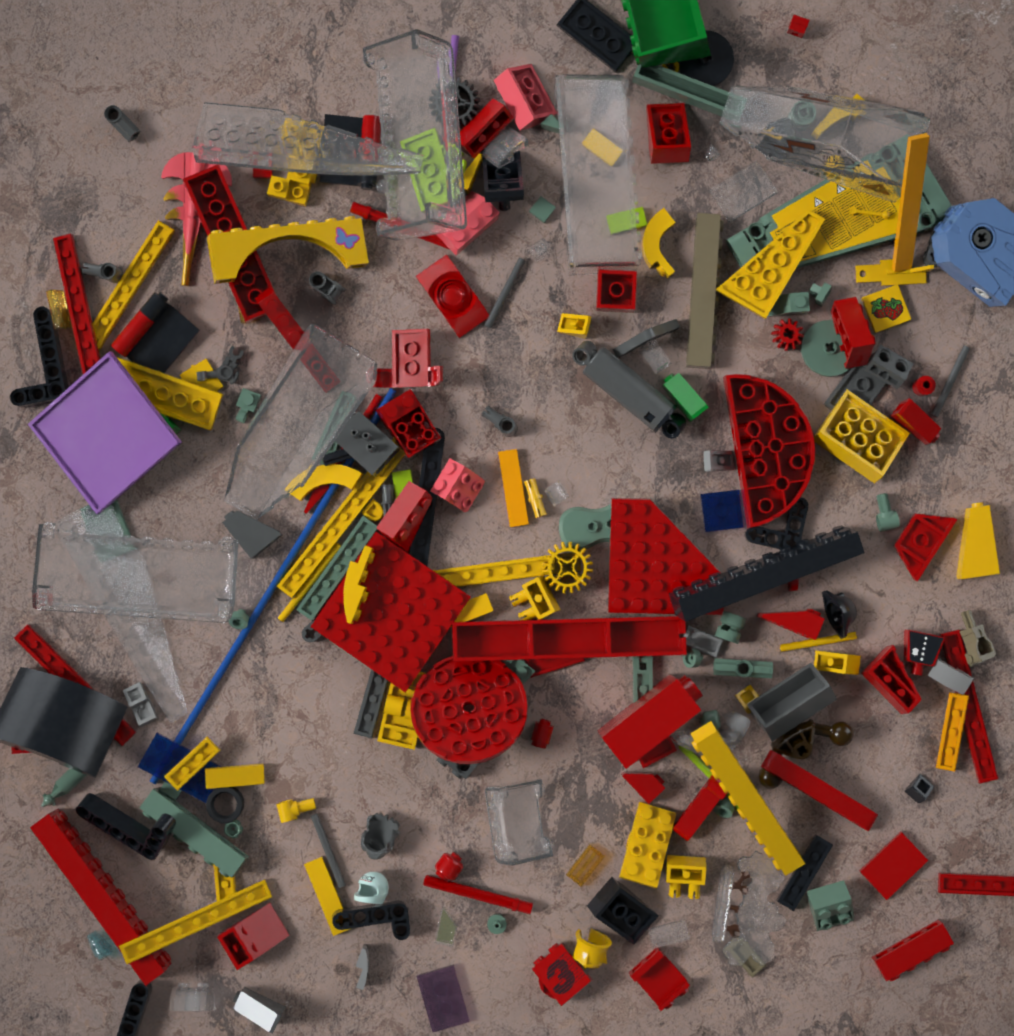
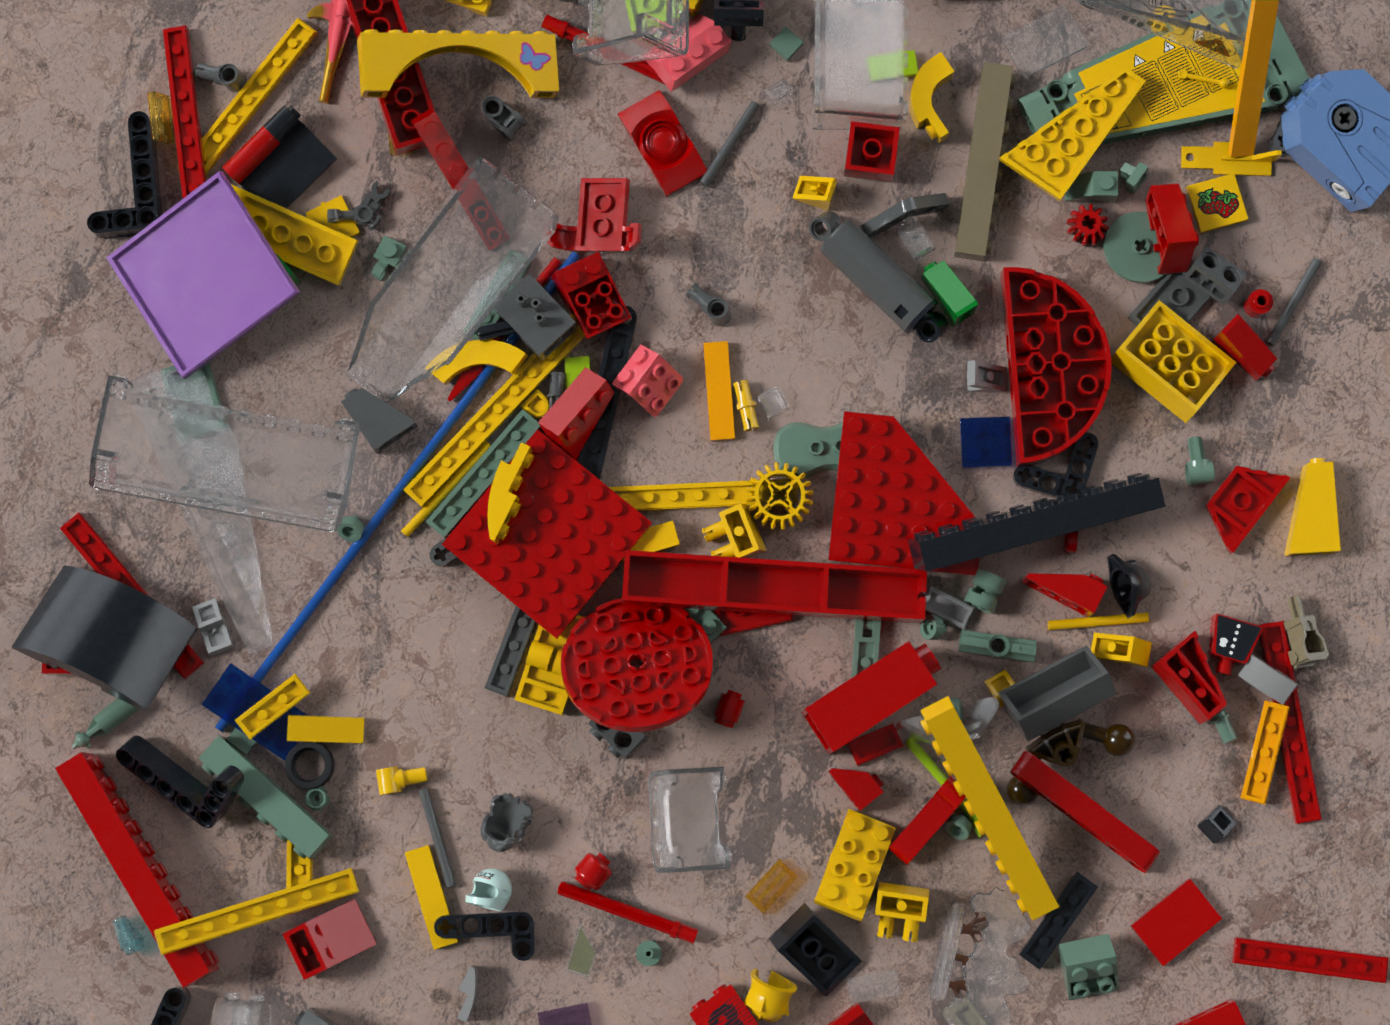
camera: 10 degrees right, 5 degrees down
(920, 715) = (1224, 726): none -> sand green pin

